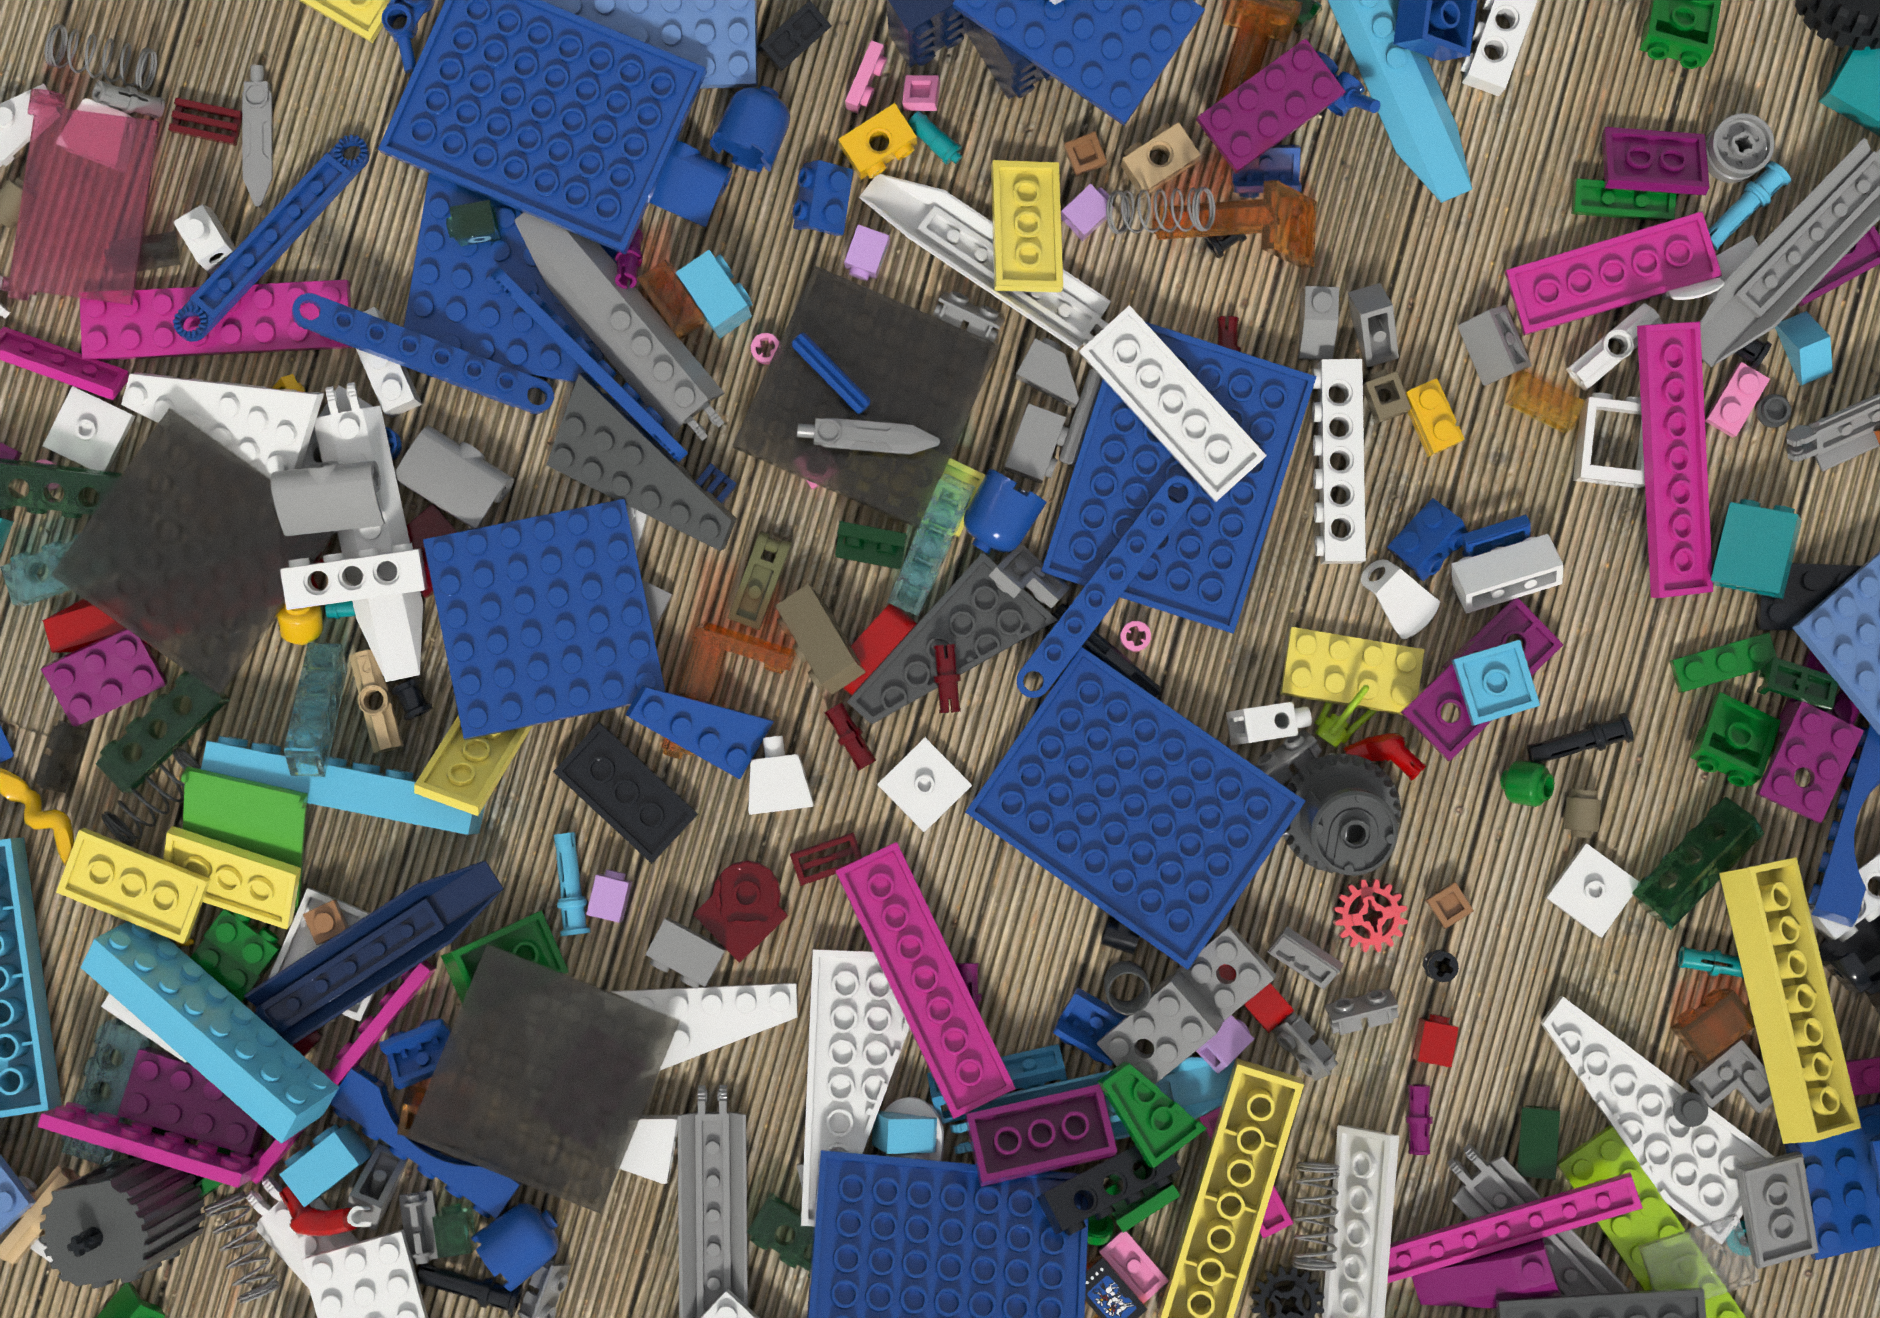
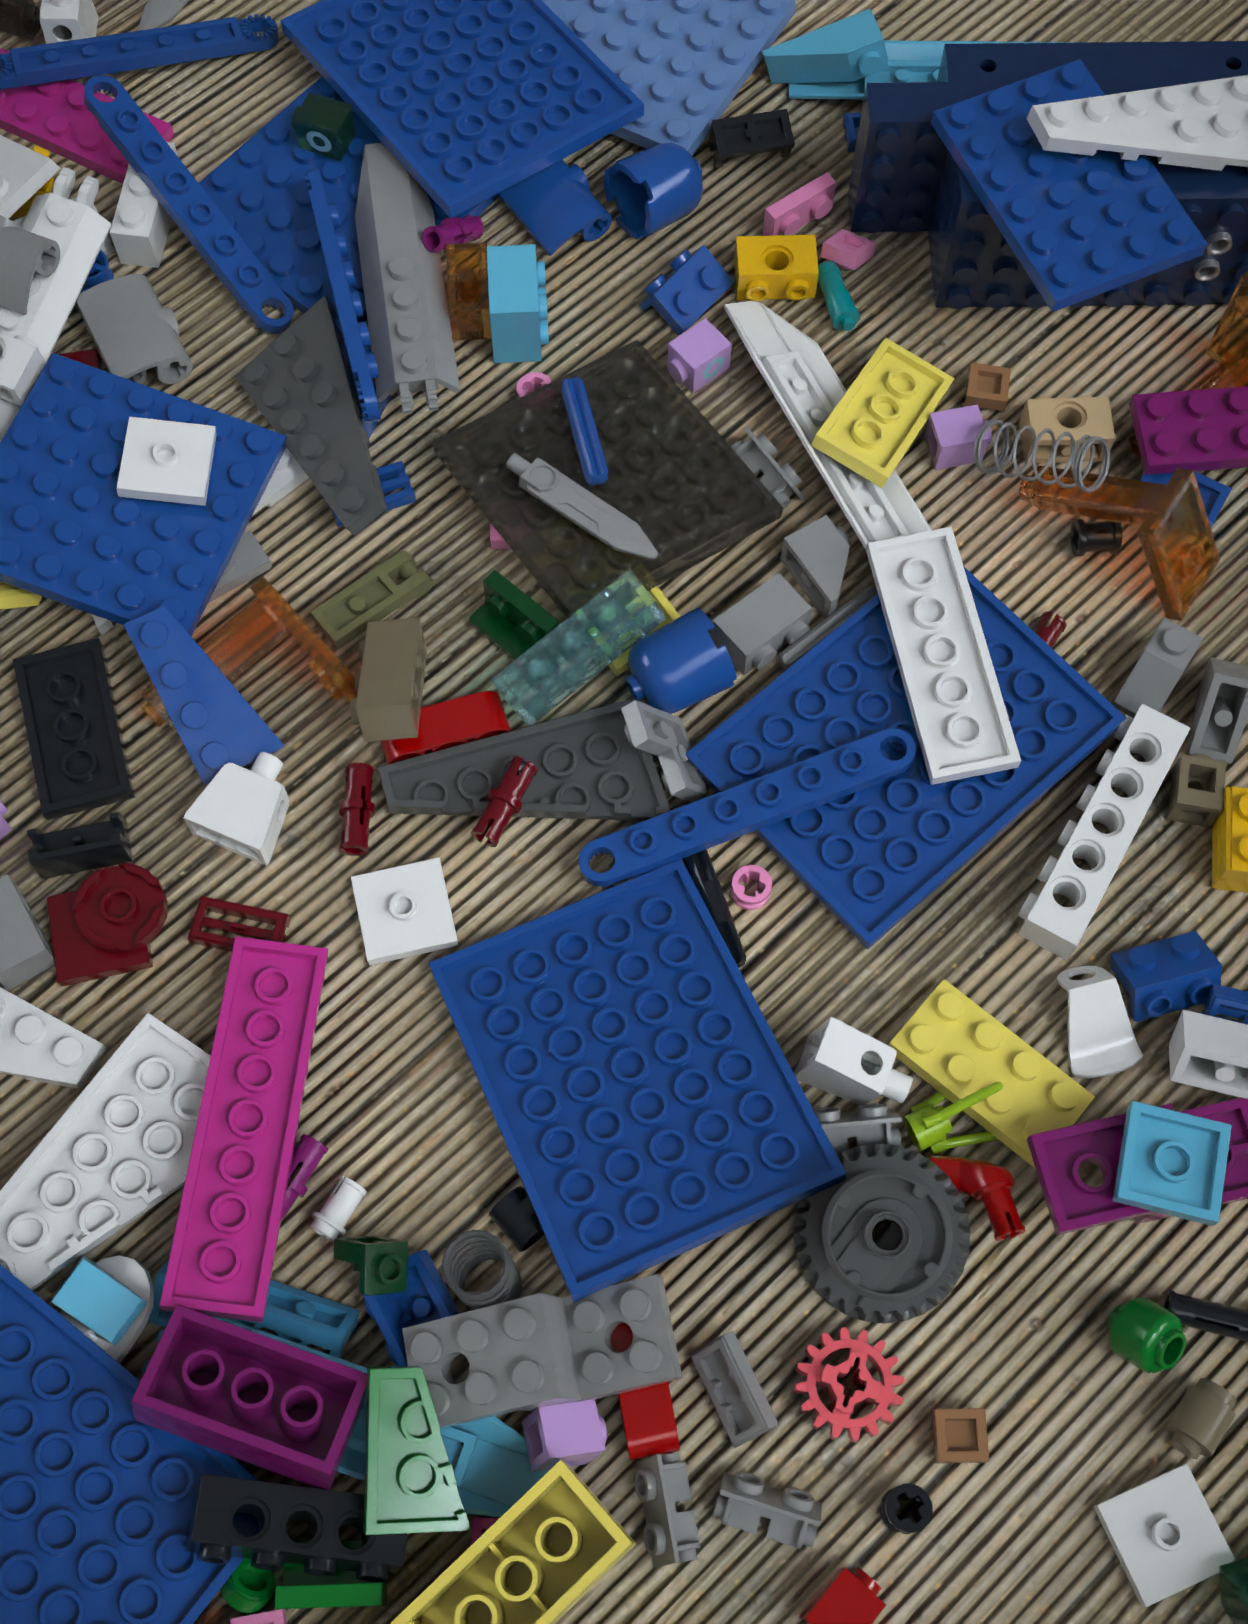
camera: 30 degrees right, 20 degrees down
(566, 576) = (166, 461): none -> white plate
(688, 867) = (80, 847): none -> black hinge
(1008, 994) = (337, 1209): none -> white pin
(1053, 1010) = (379, 1261): none -> dark green bracket

